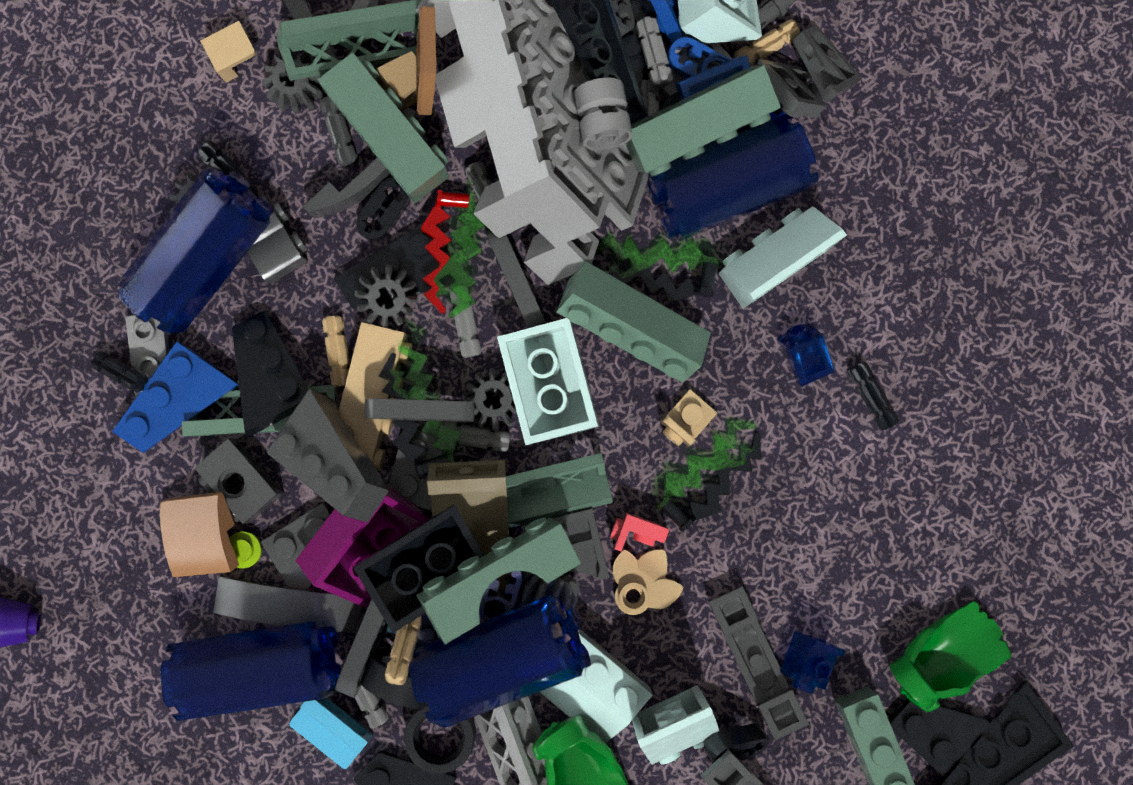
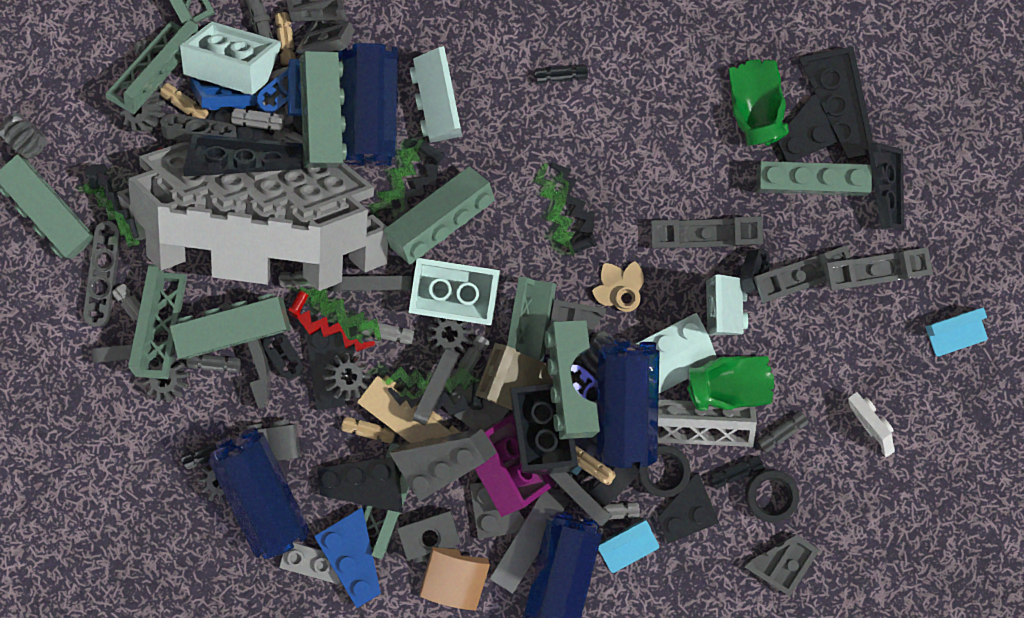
camera: 60 degrees left, 0 degrees up
(119, 371) = (317, 586): black axle -> none
(228, 49) = (123, 413): tan panel -> none
(246, 548) = (479, 548): lime plate -> none
(401, 78) = (199, 298): tan brick -> none
(426, 60) = (199, 278): medium nougat tile -> none
(602, 108) = (289, 173): light grey wheel -> none
(645, 531) = (584, 270): coral bracket -> none
(687, 419) = (521, 208): tan bracket -> none
(806, 353) = (512, 106): clear blue bracket -> none
(810, 661) = (721, 197): clear blue brick -> none

